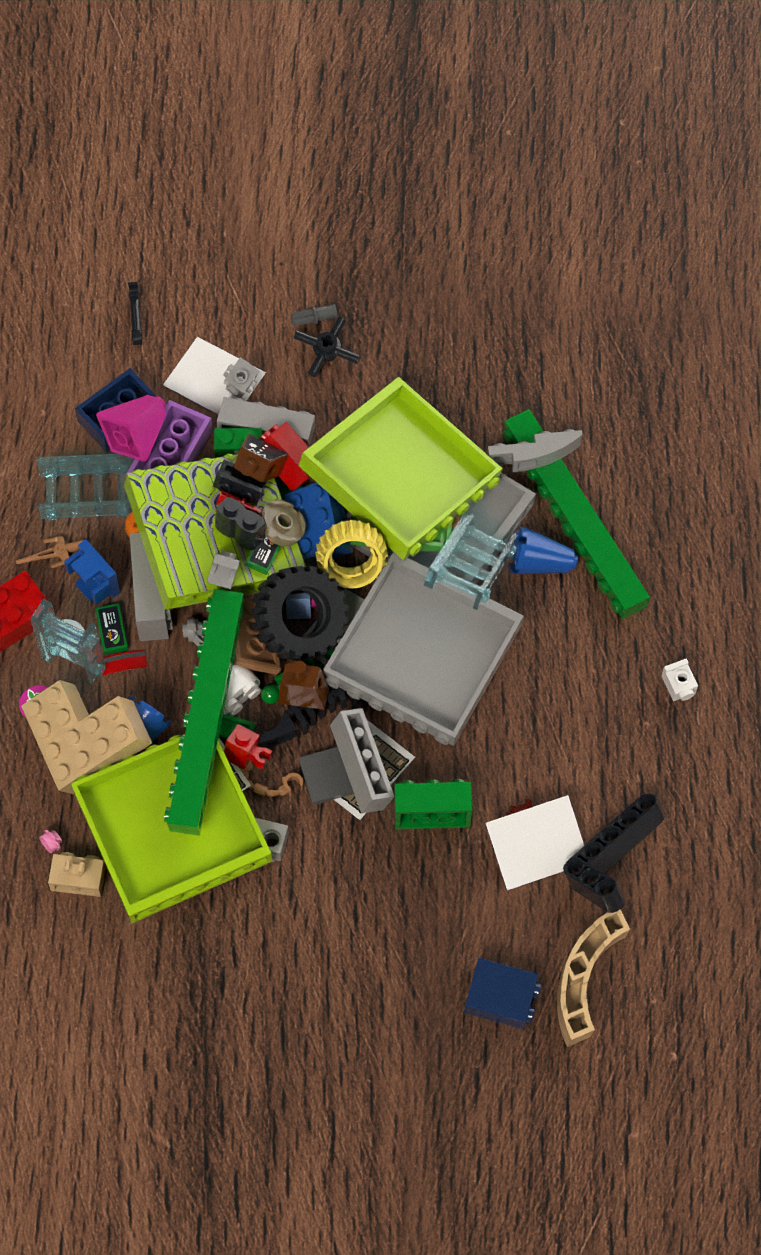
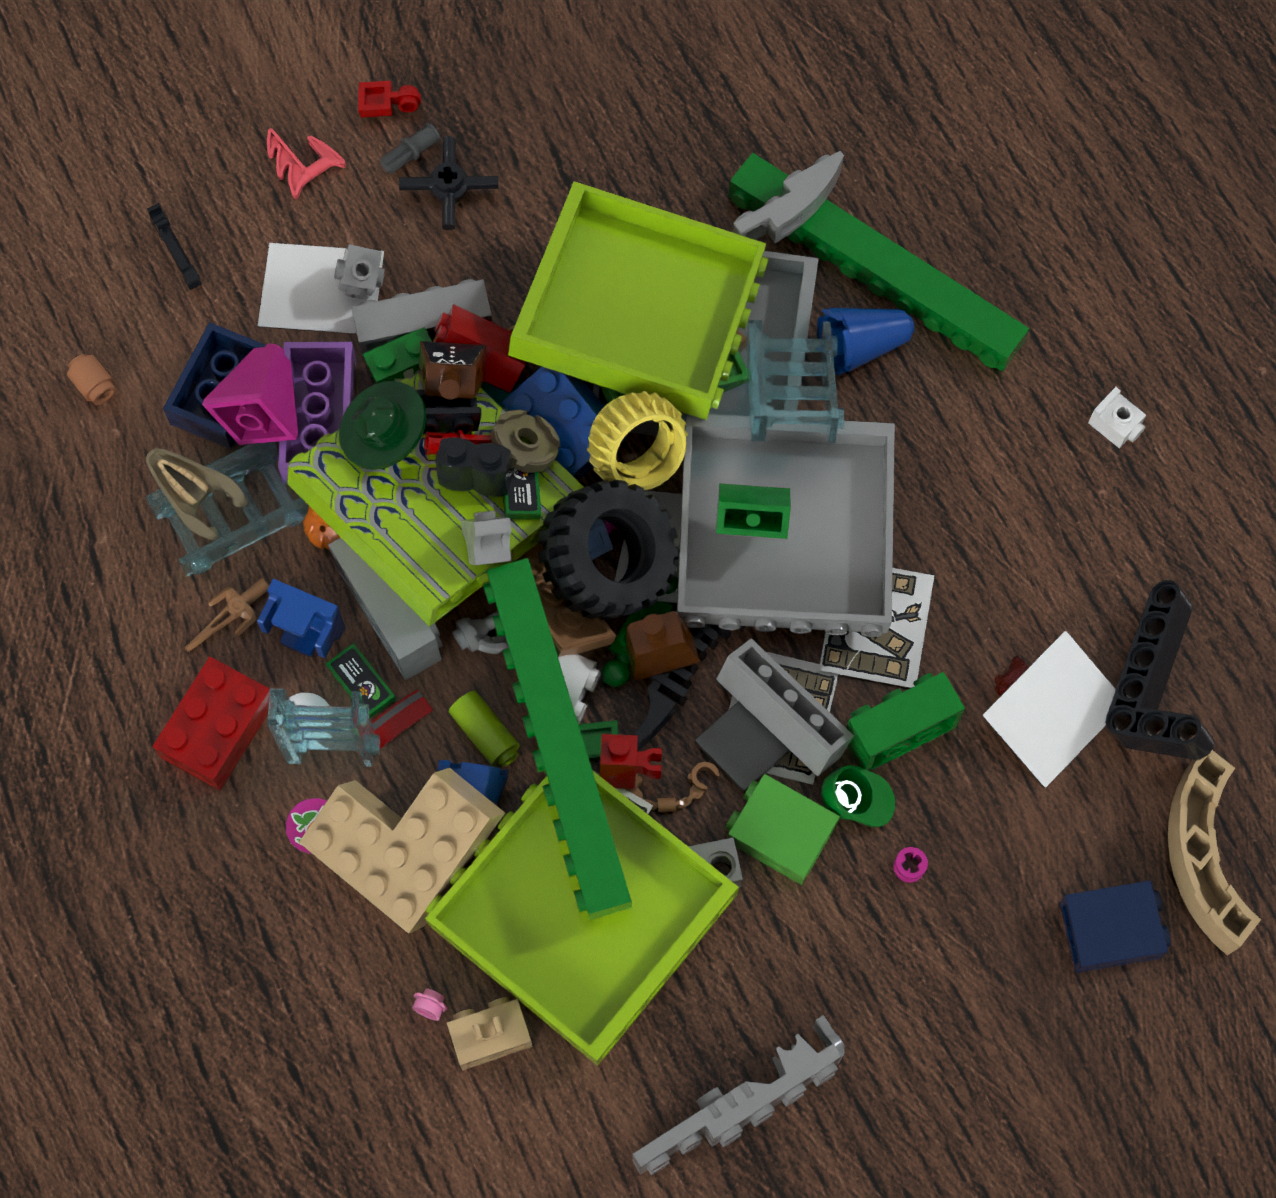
camera: 25 degrees left, 5 degrees up
(43, 373) = (91, 379): none -> nougat brick
(64, 462) = (188, 485): none -> dark tan animal
(171, 691) = (485, 729): none -> lime brick
(196, 473) = (382, 425): none -> dark green hat
(207, 987) = (753, 1102): none -> light grey piece
(236, 301) = (299, 174): none -> coral piece
(311, 274) = (378, 99): none -> red plate
(323, 836) = (781, 828): none -> bright green brick
(382, 838) = (858, 796): none -> green cap
(387, 892) = (905, 875): none -> dark pink bush
(400, 628) = (753, 511): none -> green brick
(460, 760) = (893, 655): none -> sticker

